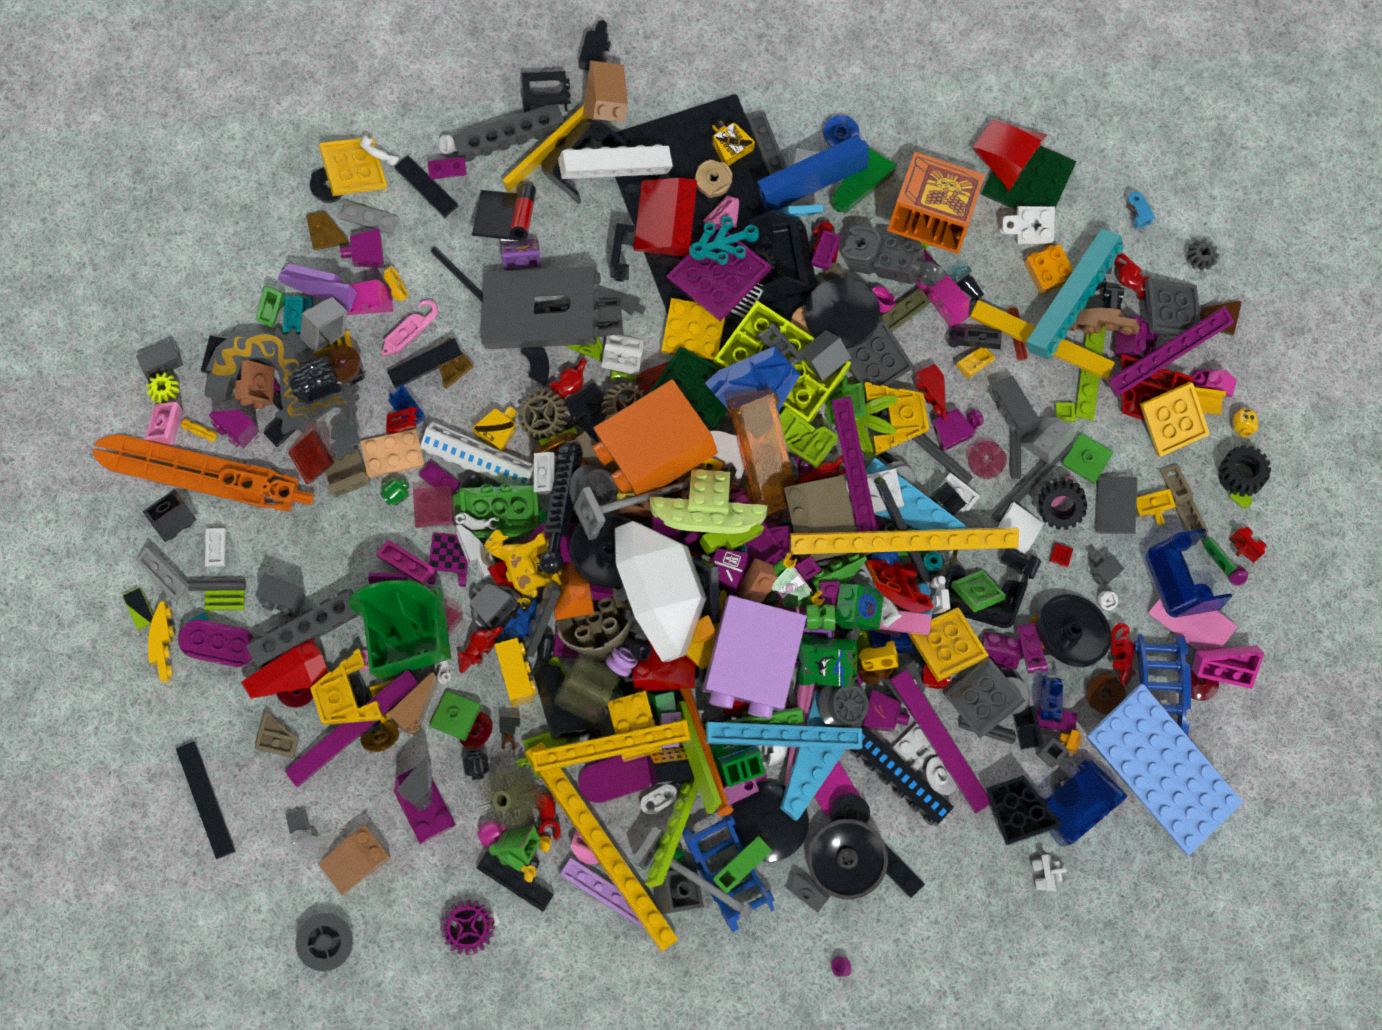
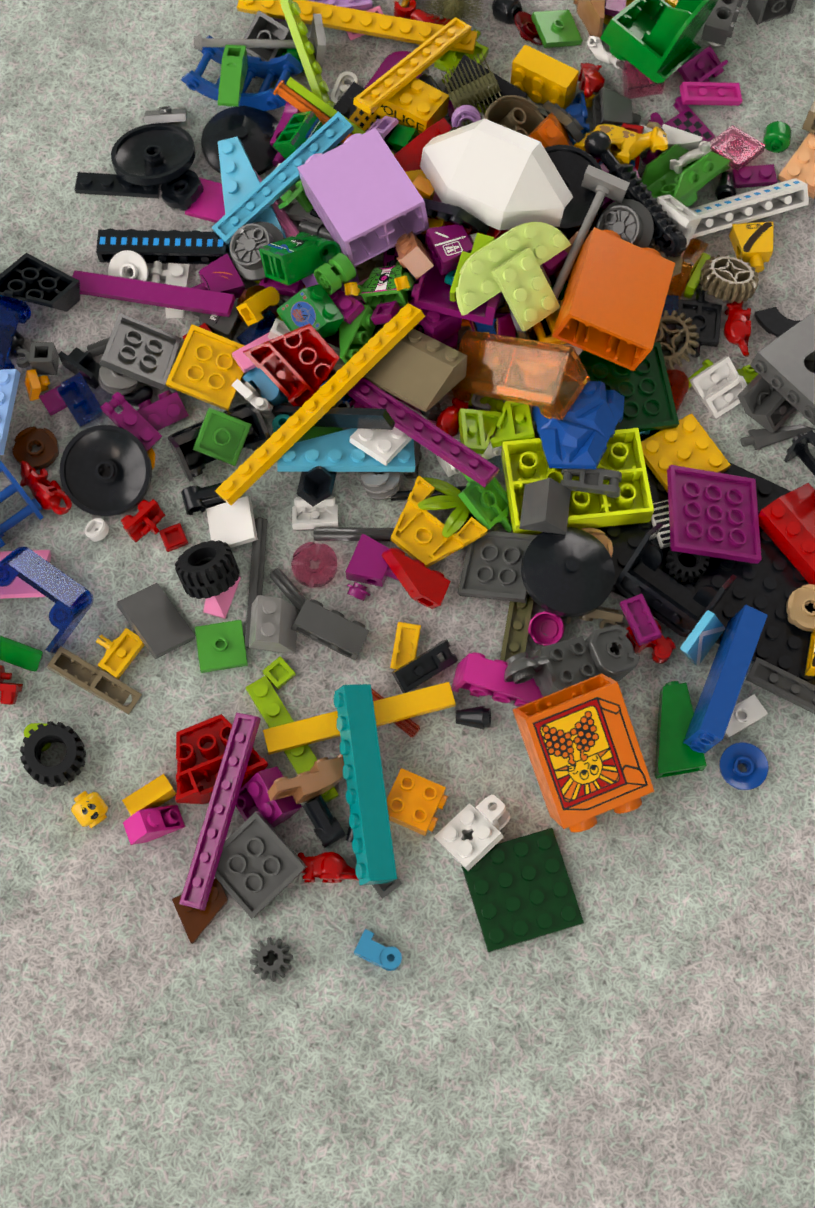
camera: 145 degrees right, 5 degrees down
(508, 727) = (508, 48): pearl dark grey piece -> none
(721, 242) = (740, 539): teal plant -> none
(728, 207) = (765, 581): bright pink slope -> none
(841, 966) = (94, 87): magenta tile -> none
(960, 273) = (497, 720): clear light blue tile -> none
(1007, 149) = (568, 894): red wedge -> none
(1081, 579) = (144, 521): none -> red hips
(1106, 569) = (119, 552): dark grey brick -> none
(1174, 419) = (163, 746): yellow plate -> none

